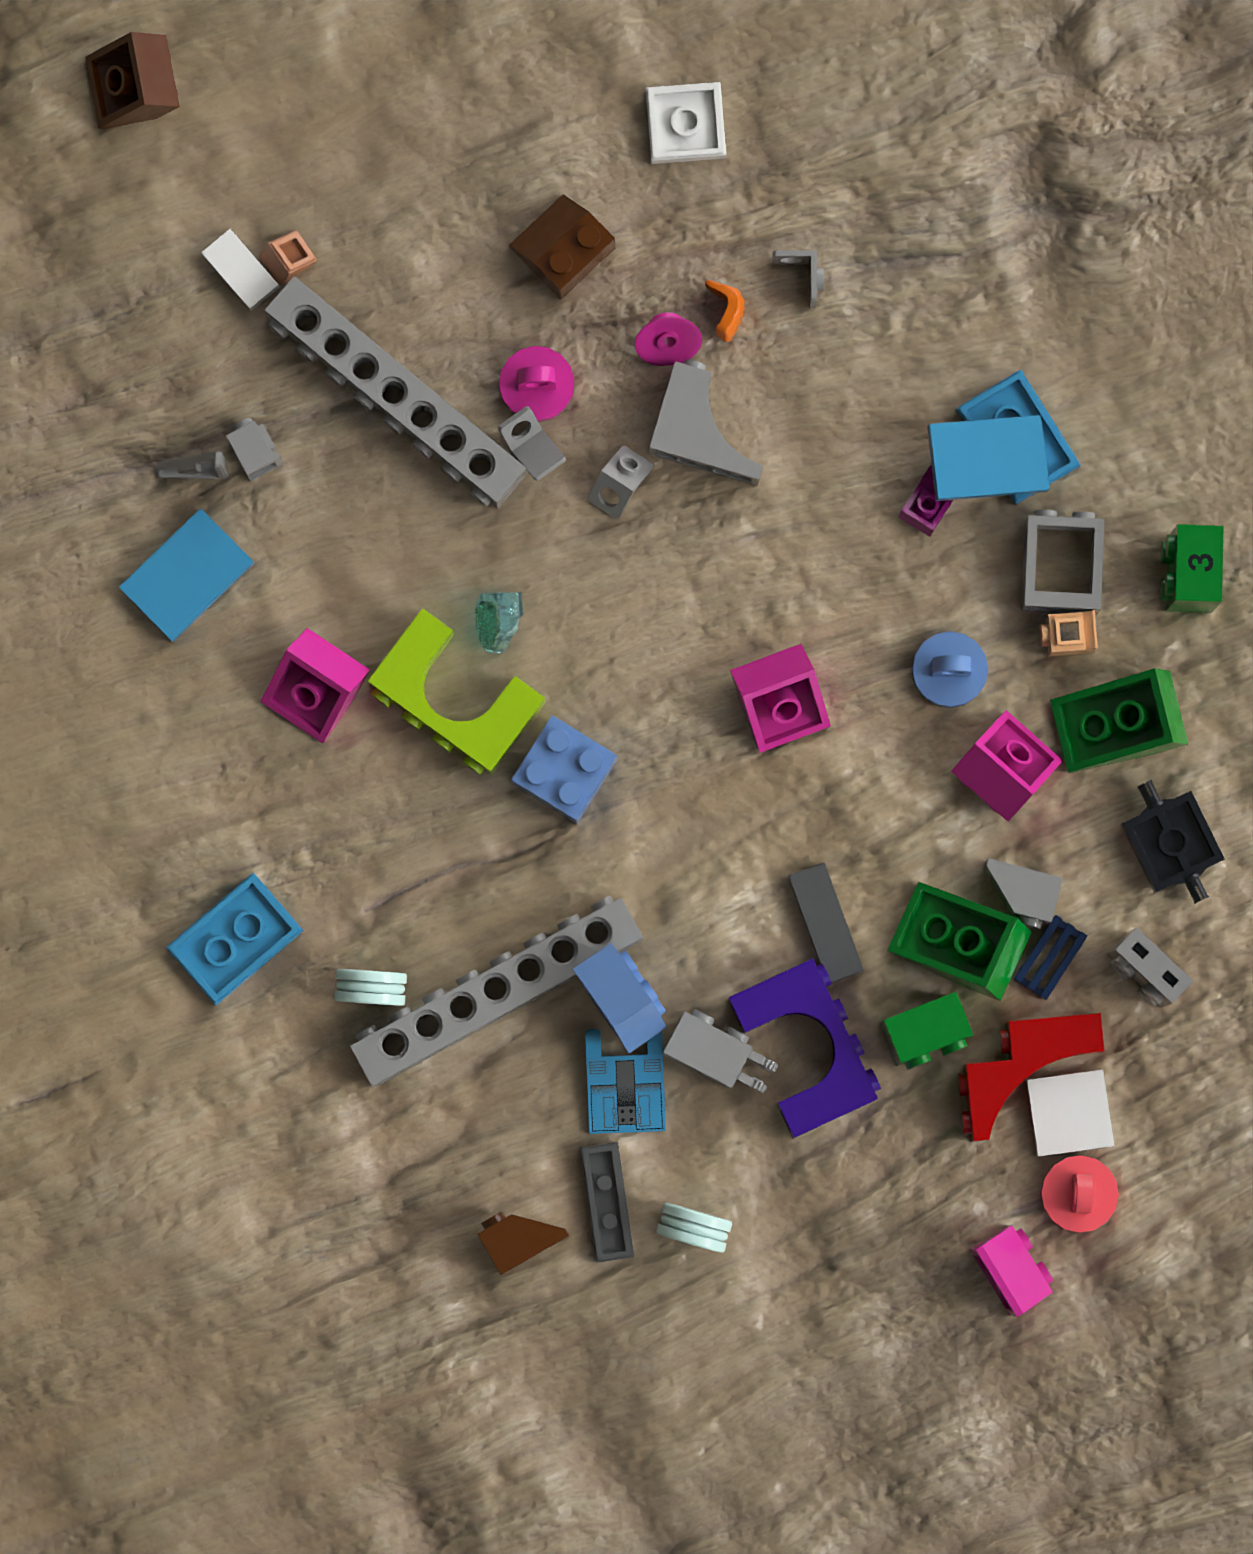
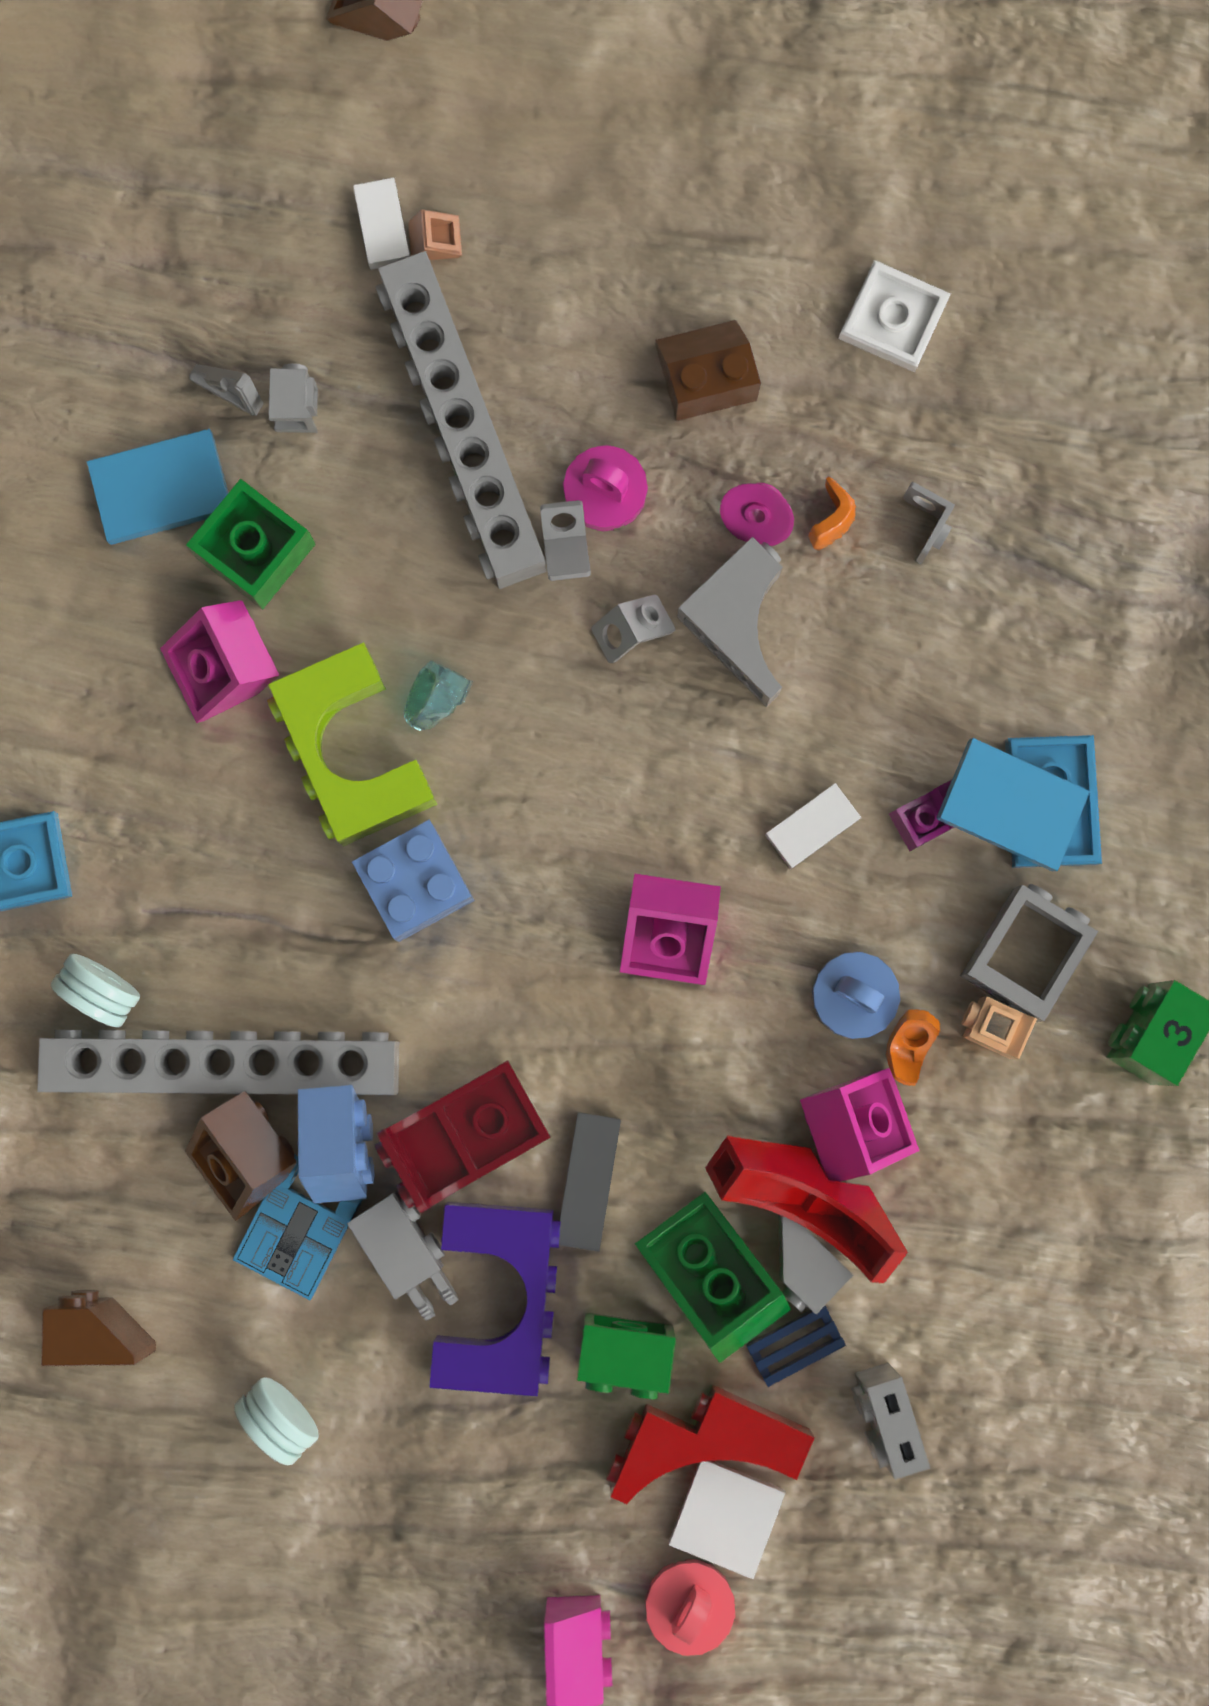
camera: 30 degrees right, 0 degrees up
(290, 580) = (251, 543): none -> green brick
(552, 1048) = (240, 1154): none -> slope
(607, 1202) = (210, 1340): dark grey tile -> none
(713, 940) = (461, 1137): none -> dark red bracket
(845, 558) = (813, 826): none -> white tile
(985, 836) = (795, 1186): none -> red arch
(1011, 683) = (910, 1044): none -> orange hair
(1119, 720) = (999, 1143): green slope -> none
(1172, 841) = (986, 1298): black plate -> none

